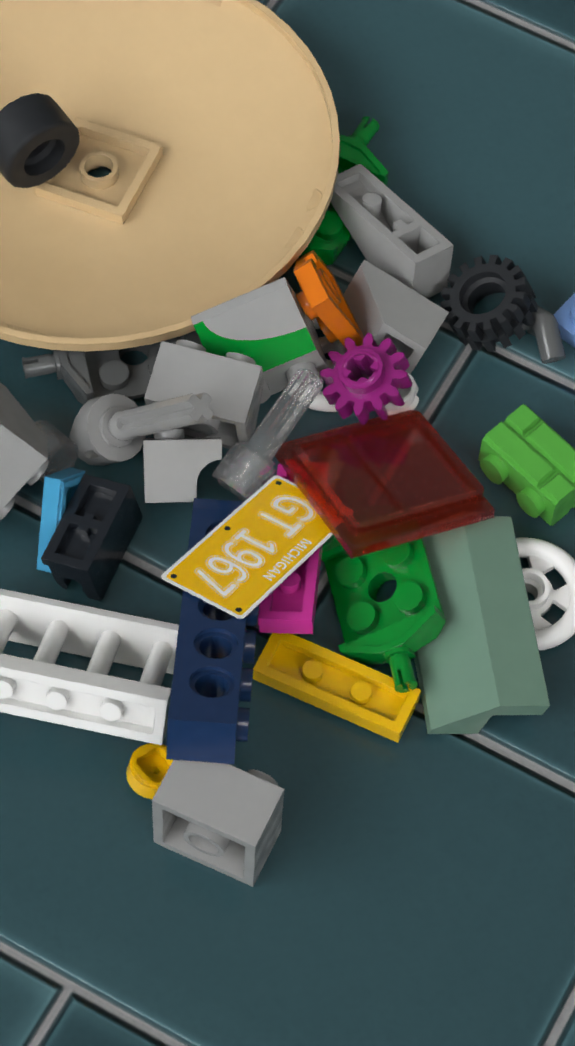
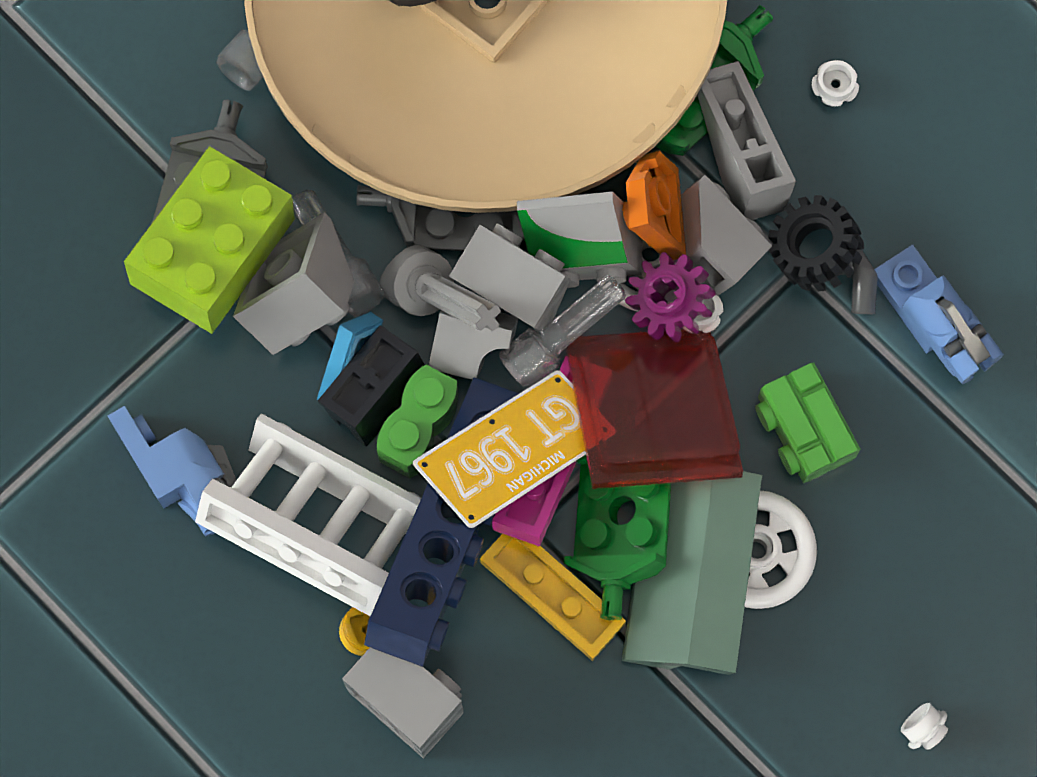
camera: 20 degrees right, 15 degrees up
(151, 550) = (425, 412): none -> bright green brick
(459, 160) = (840, 72): none -> white plate

